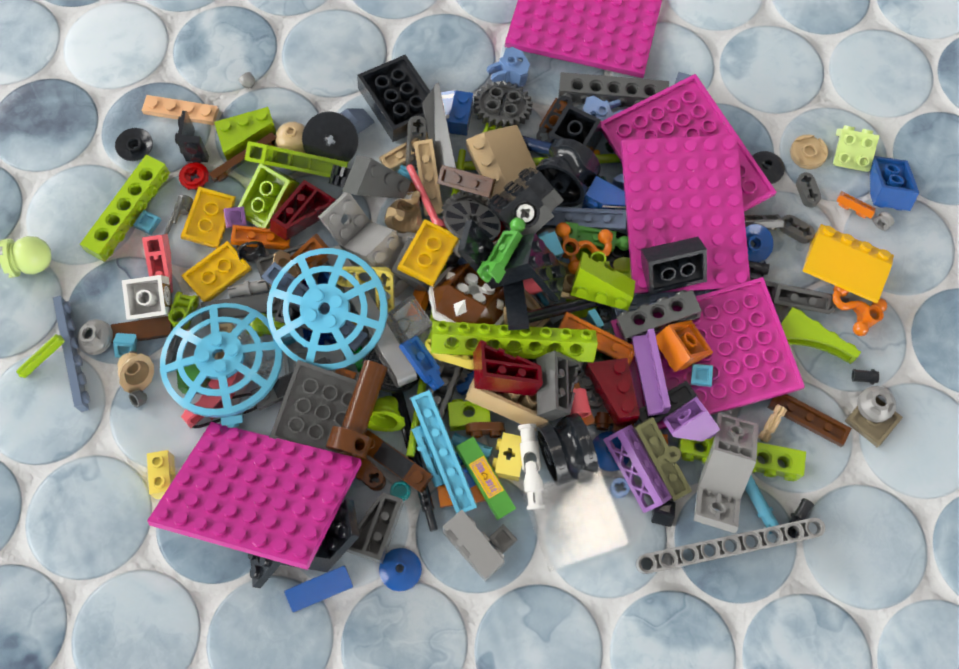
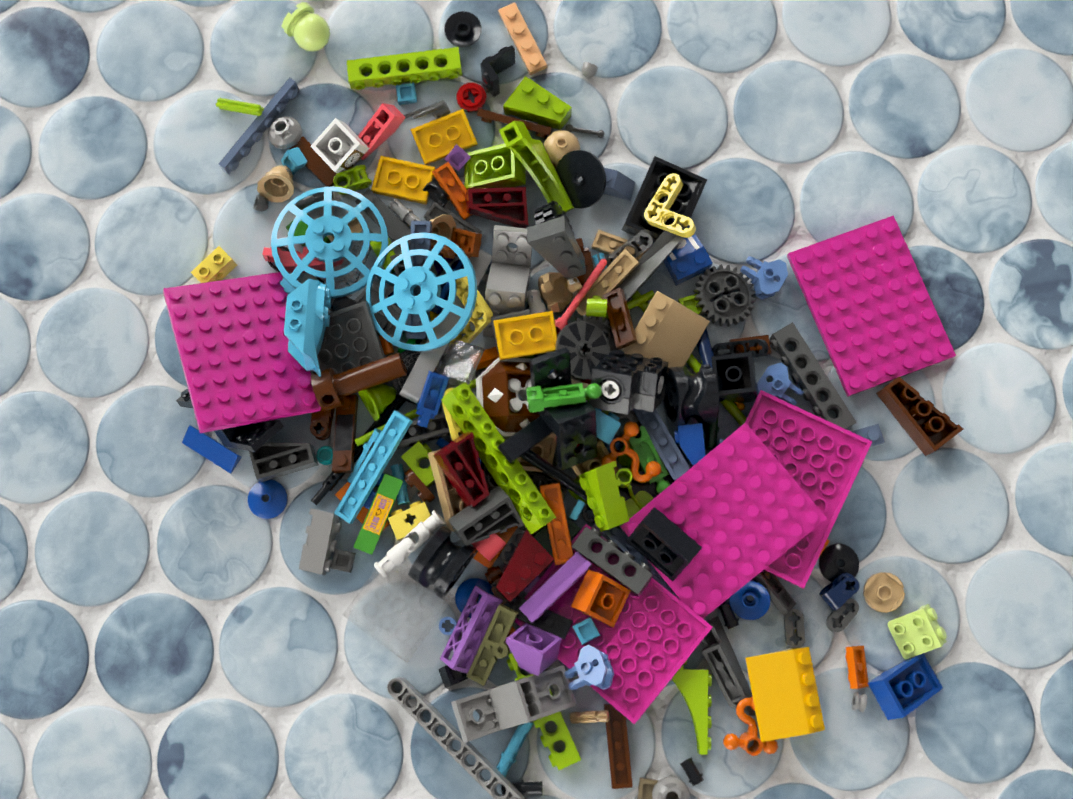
camera: 60 degrees right, 10 degrees up
(283, 418) = (306, 321): none -> medium azure slope
(304, 107) = (570, 128): none -> dark grey hinge
(410, 94) = (663, 209): none -> light yellow beam
(445, 189) = (596, 306): none -> lime piece
(693, 41) = (917, 416): none -> reddish brown wedge
(734, 389) = (592, 668): none -> medium blue hinge
(789, 179) = (838, 592): none -> dark blue piece

